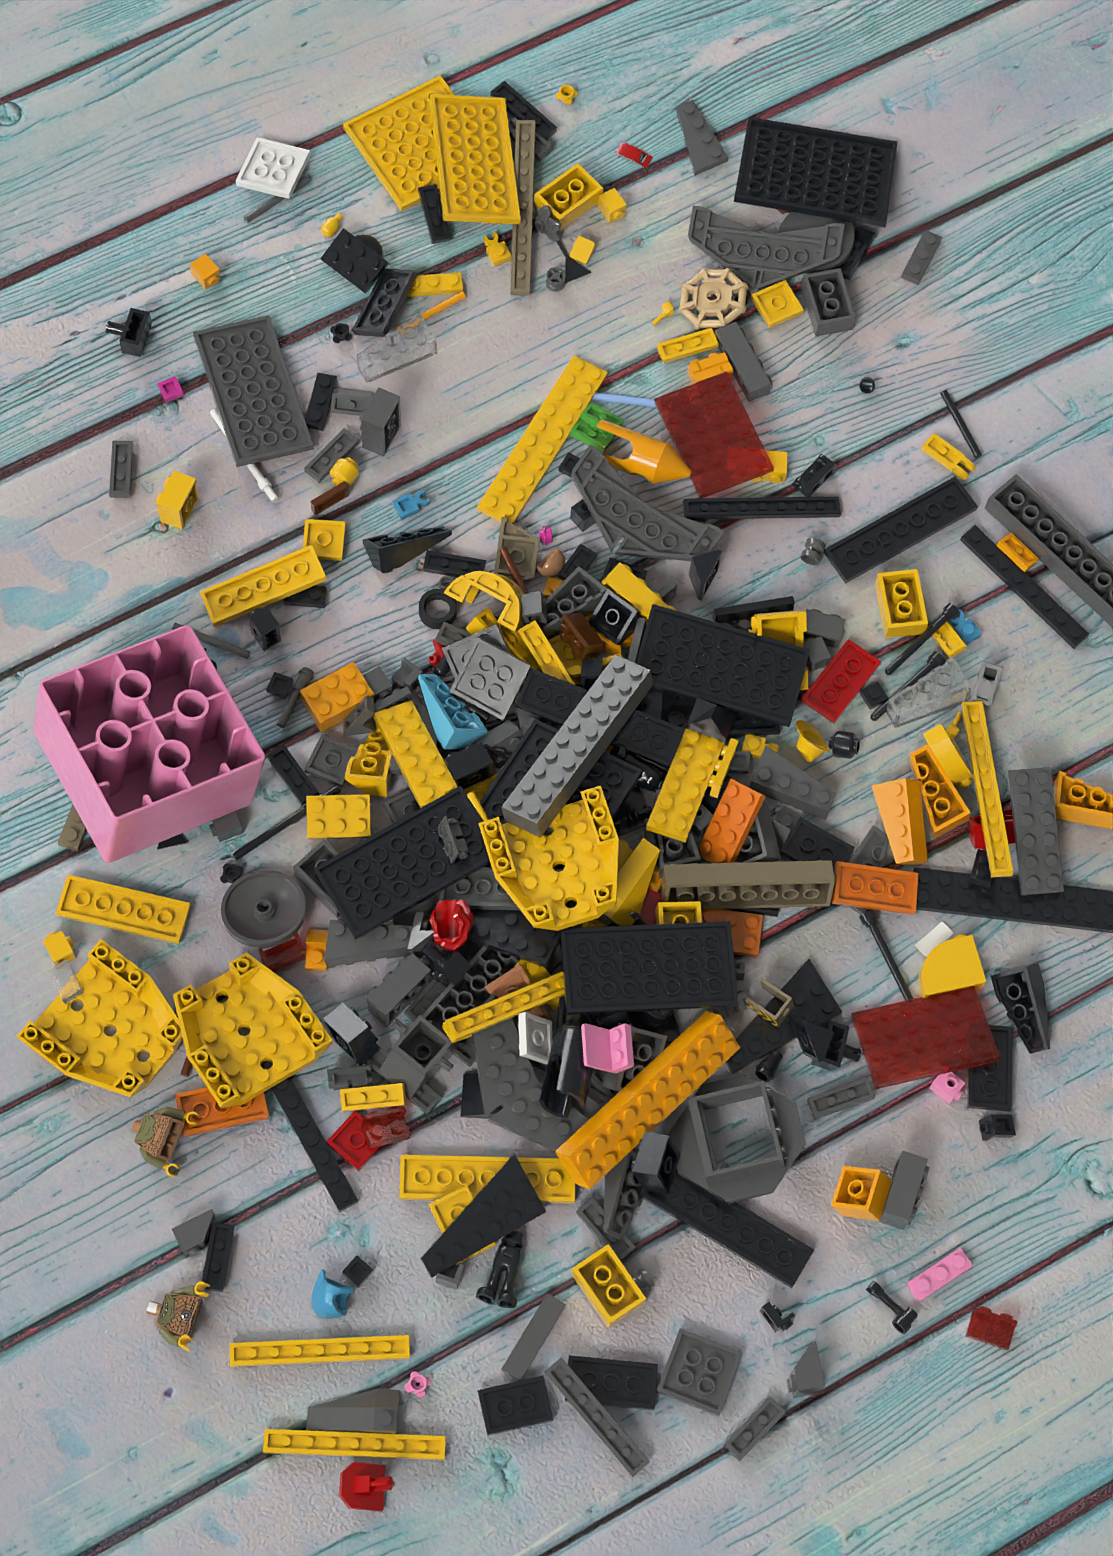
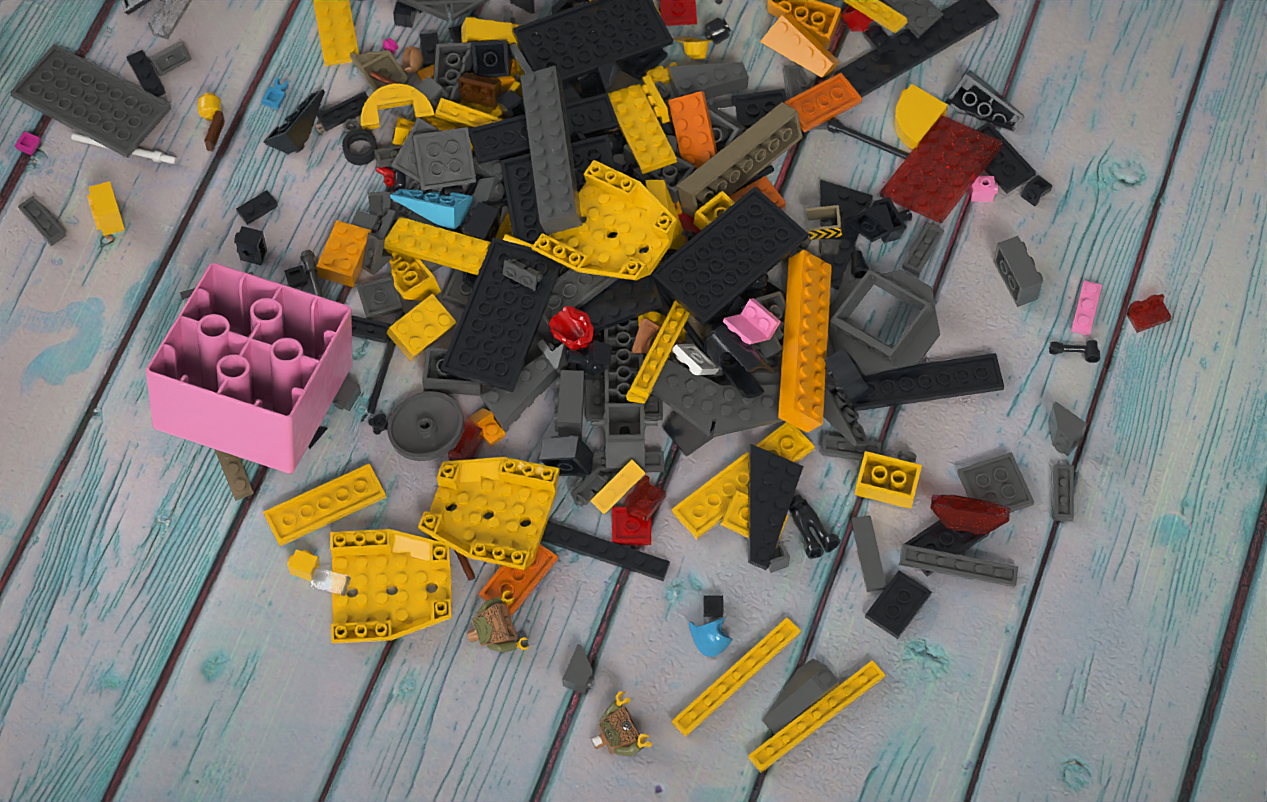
camera: 35 degrees left, 5 degrees down
(218, 1256) = (609, 672): black plate -> none
(263, 586) = (222, 219): yellow plate -> none
(325, 460) = (188, 103): dark grey plate -> none
(326, 538) = (236, 161): yellow plate -> none
(340, 328) = (114, 17): black plate -> none
(364, 1486) = (849, 735): red piece -> none
(380, 421) = (206, 52): dark grey brick -> none
(417, 1378) = (825, 640): bright pink plate -> none
(647, 1376) = (969, 513): none -> clear red wedge
(773, 1317) = (1011, 416): black bracket -> none
(861, 1193) = (993, 293): light orange brick -> none
(934, 938) = (887, 108): white sticker -> none

